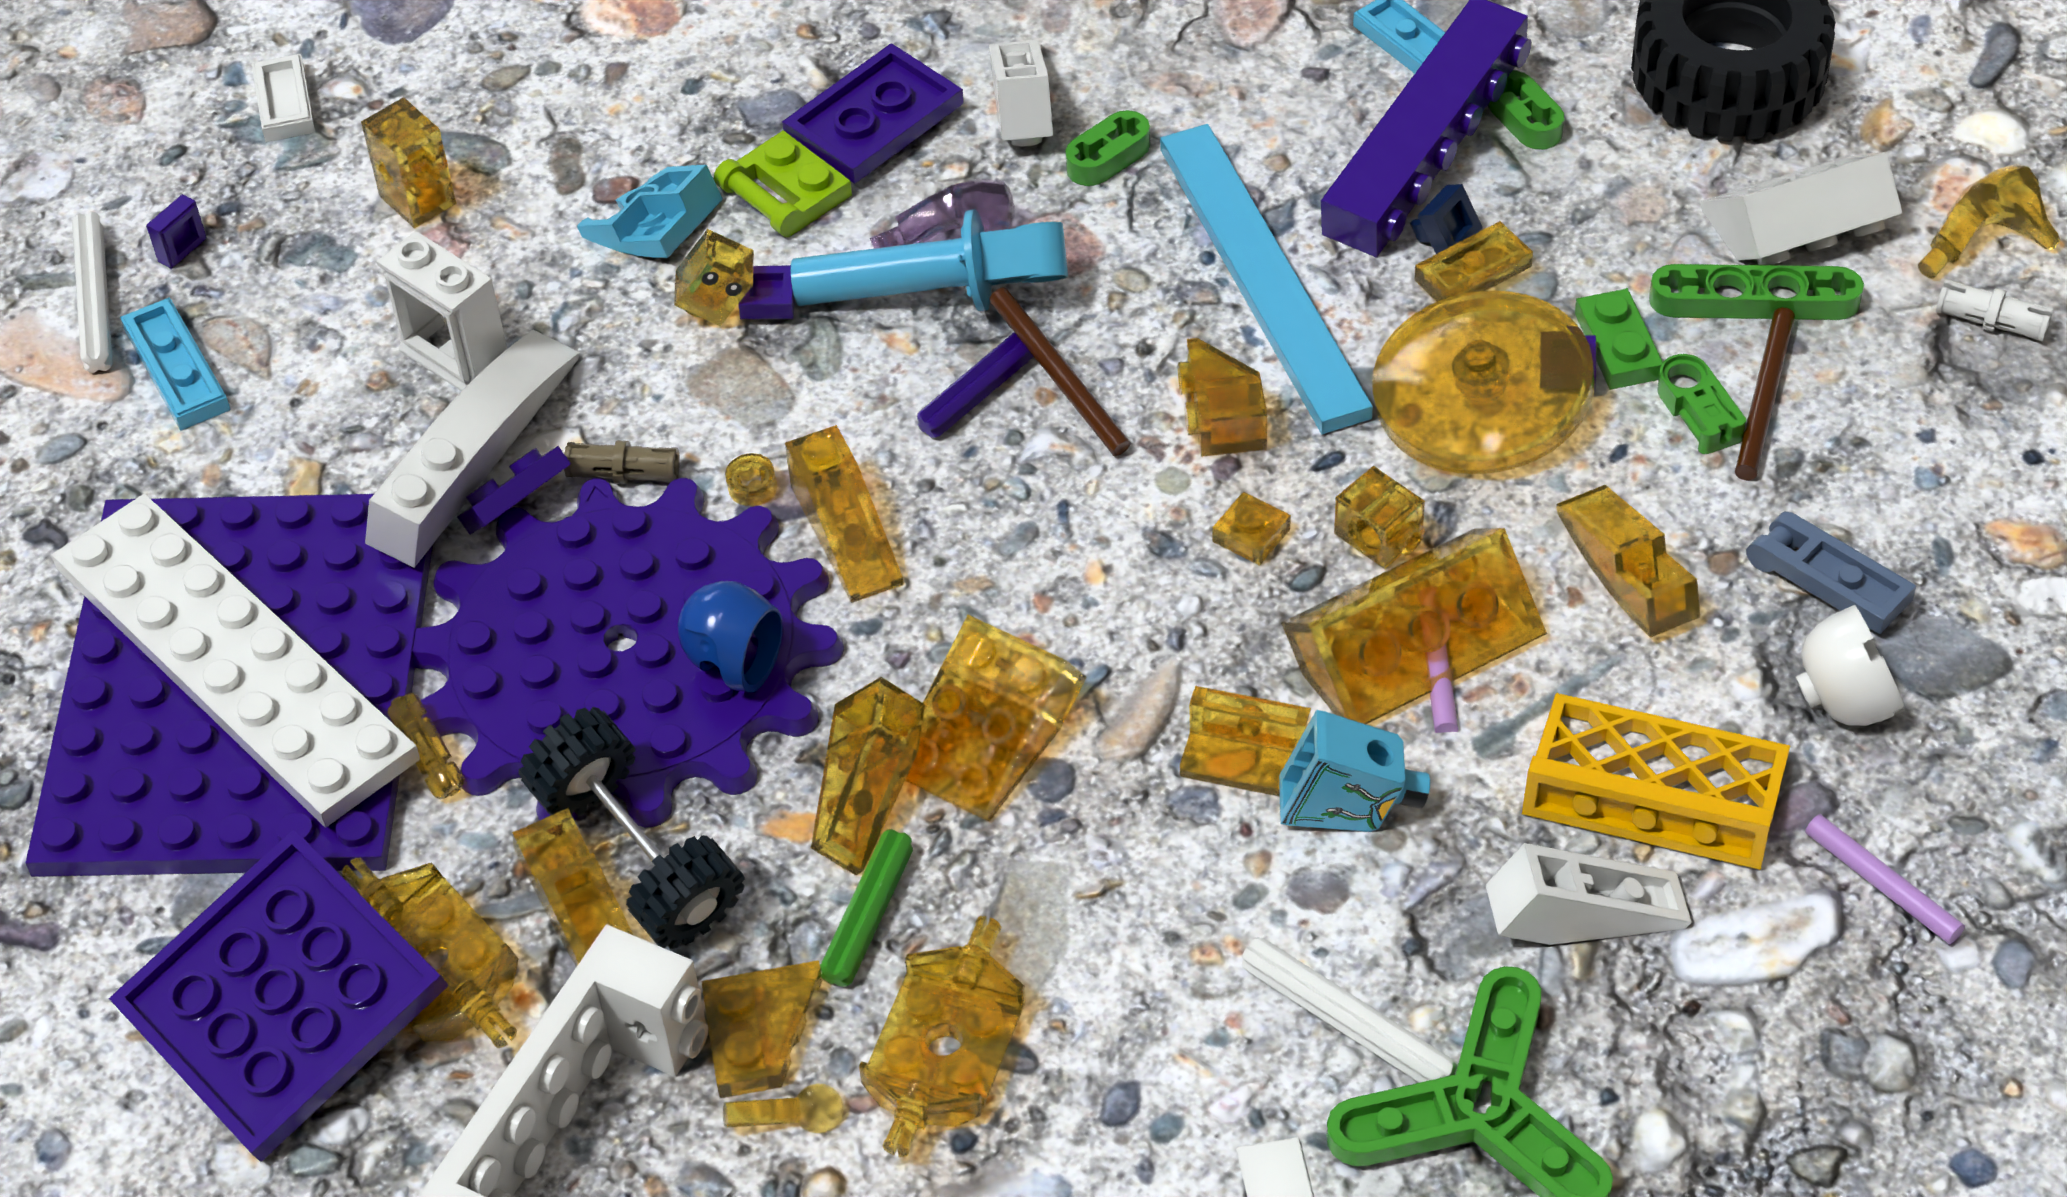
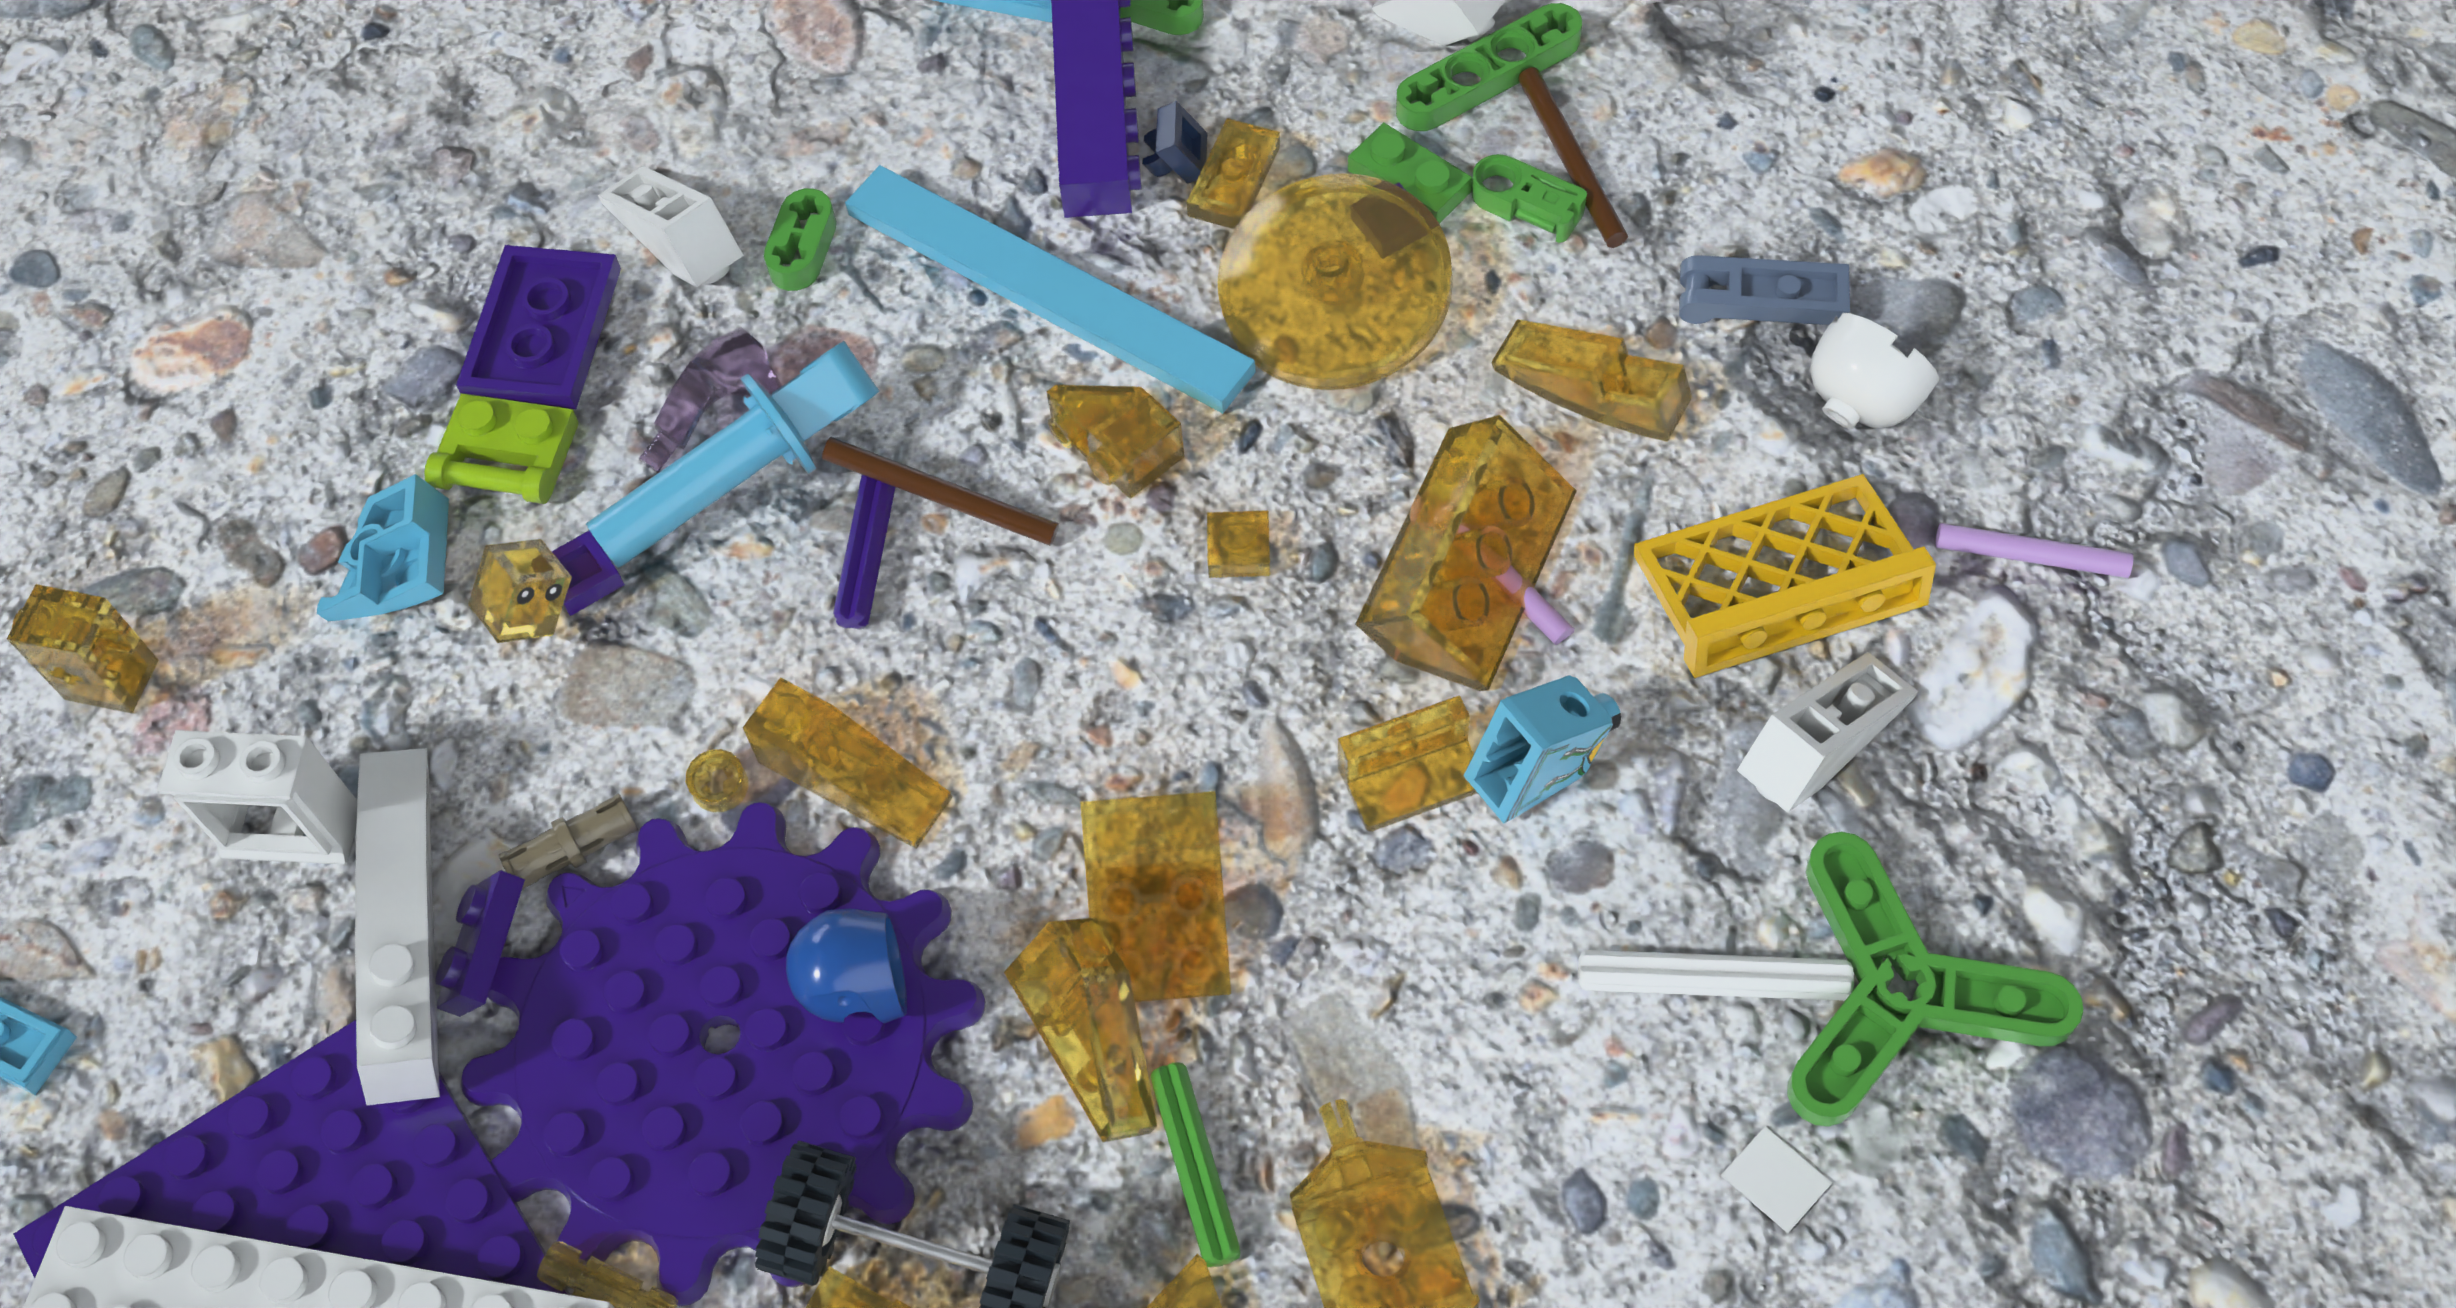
camera: 35 degrees left, 10 degrees up
(1379, 517) = (1354, 466): clear yellow brick -> none

